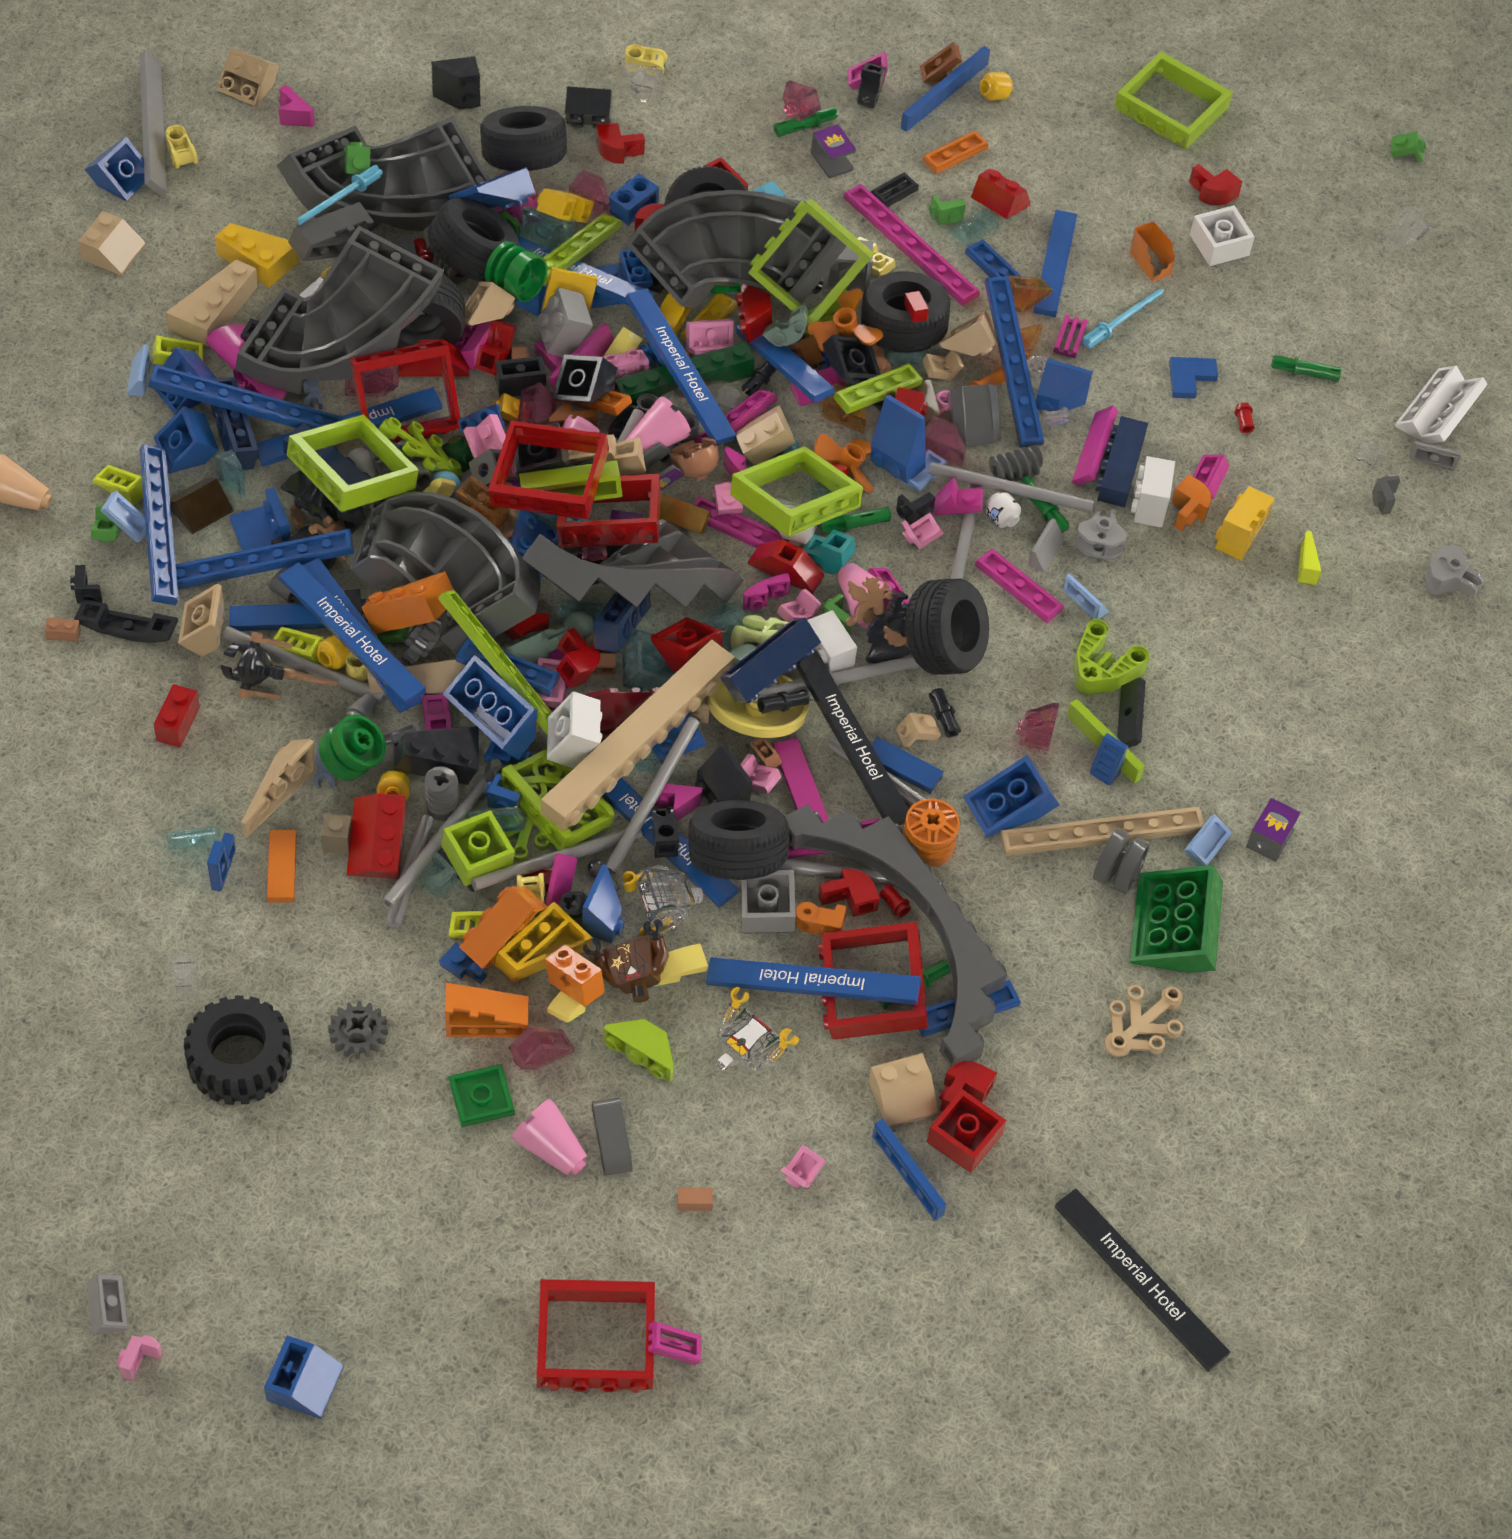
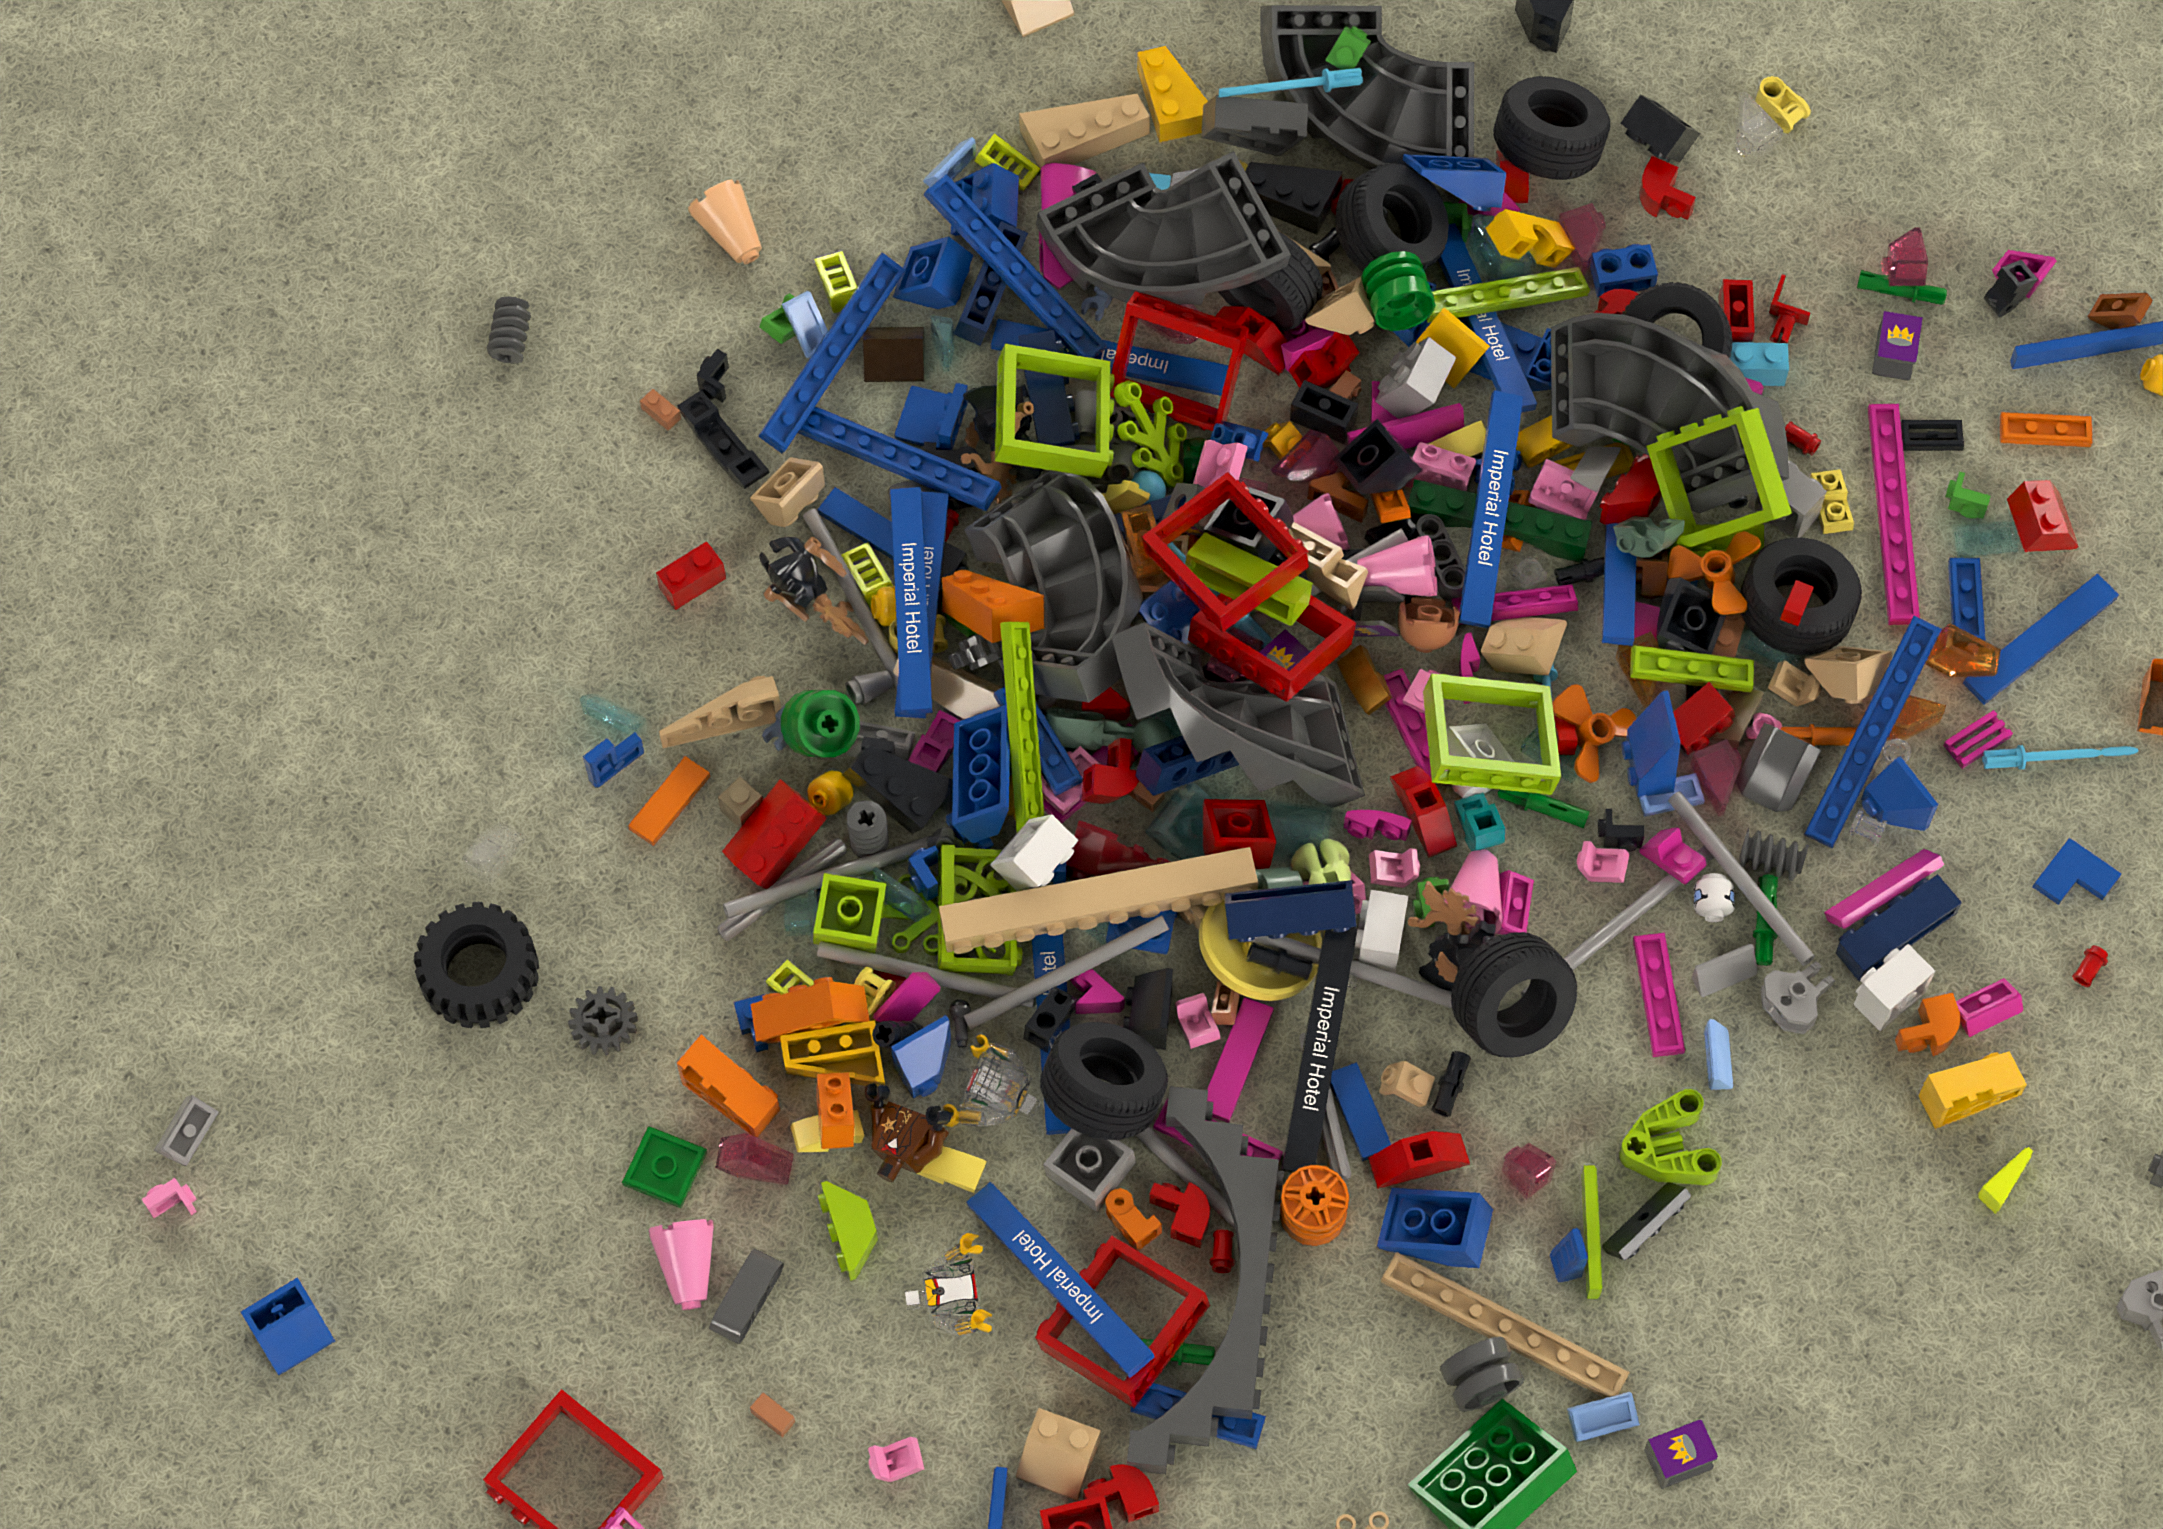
camera: 45 degrees right, 10 degrees up
(720, 309) = (1595, 466): none -> light grey slope
(750, 169) = (1786, 315): none -> red bracket
(964, 767) = (1418, 1157): none -> red slope

